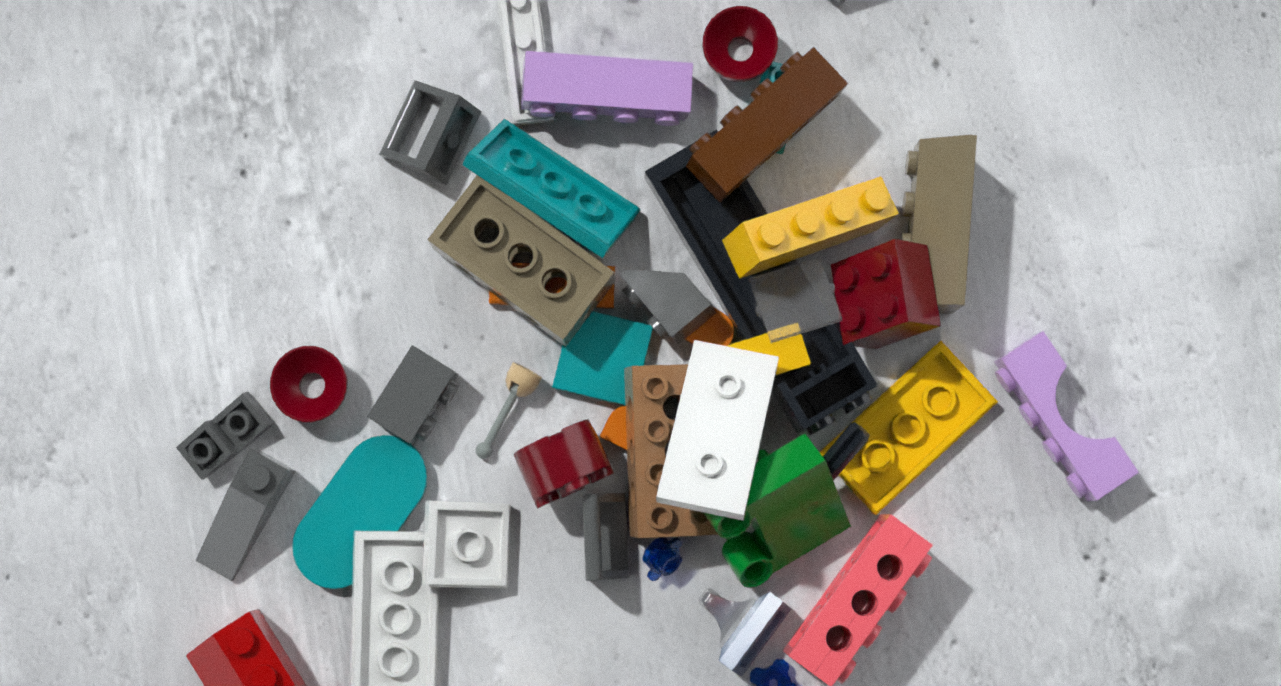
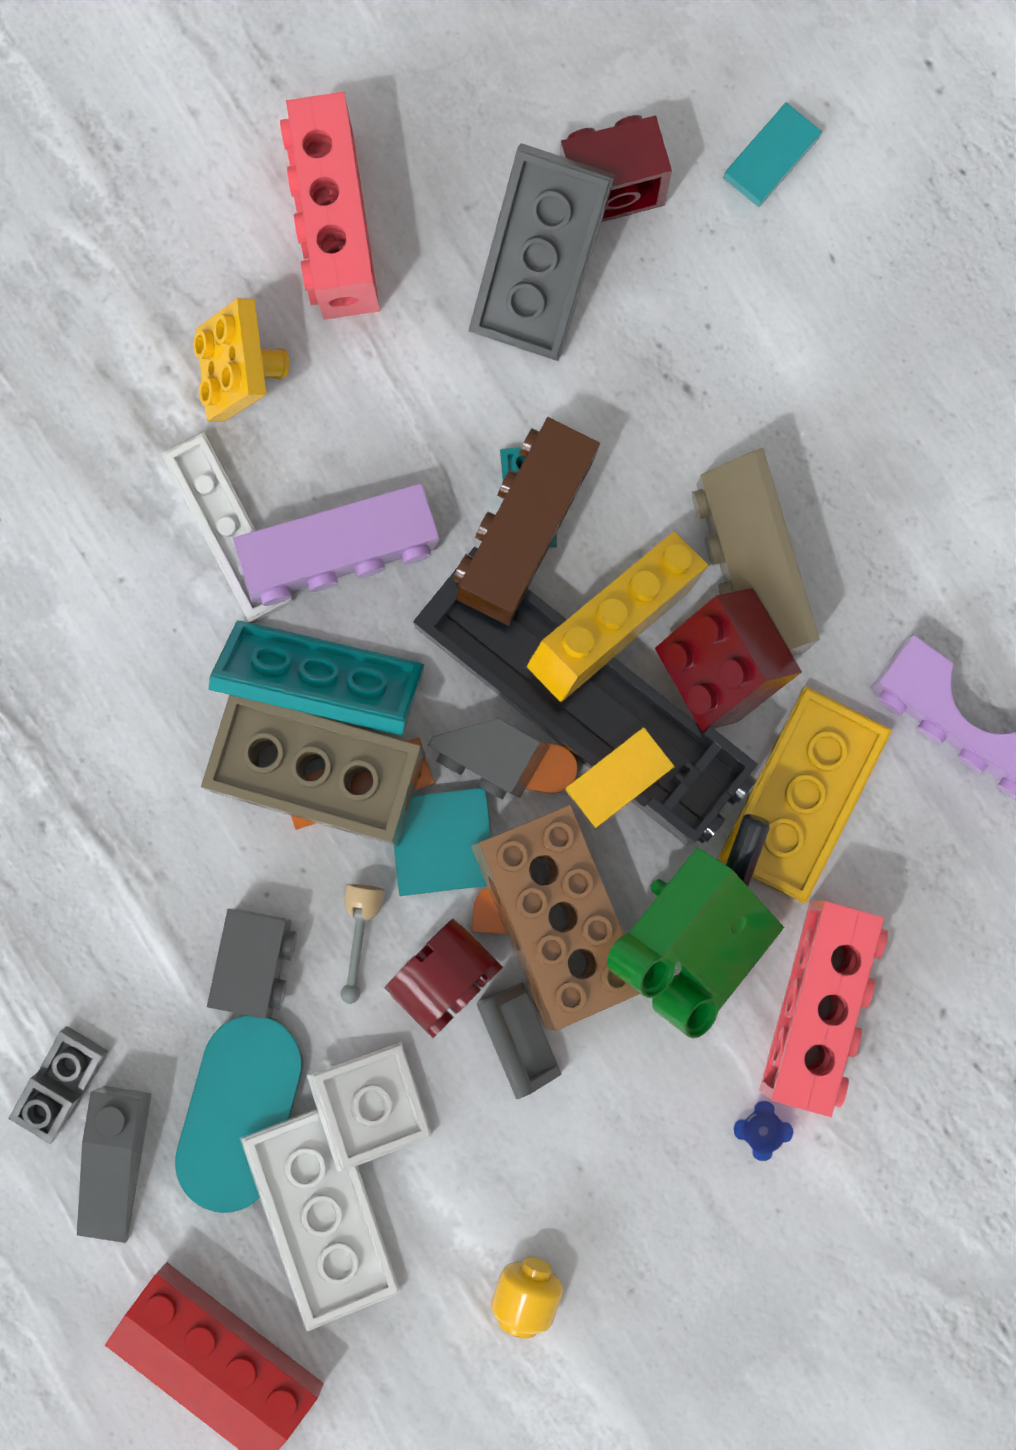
camera: 15 degrees left, 0 degrees up
(287, 380) = (104, 994): dark red piece -> none
(445, 137) = (179, 668): dark grey tile -> none
(662, 557) = (590, 1039): clear blue plate -> none
(717, 430) = (600, 880): white plate -> none
(744, 24) = (458, 420): dark red piece -> none
(744, 626) = (707, 1081): piece -> none
(795, 299) = (631, 702): clear piece -> none

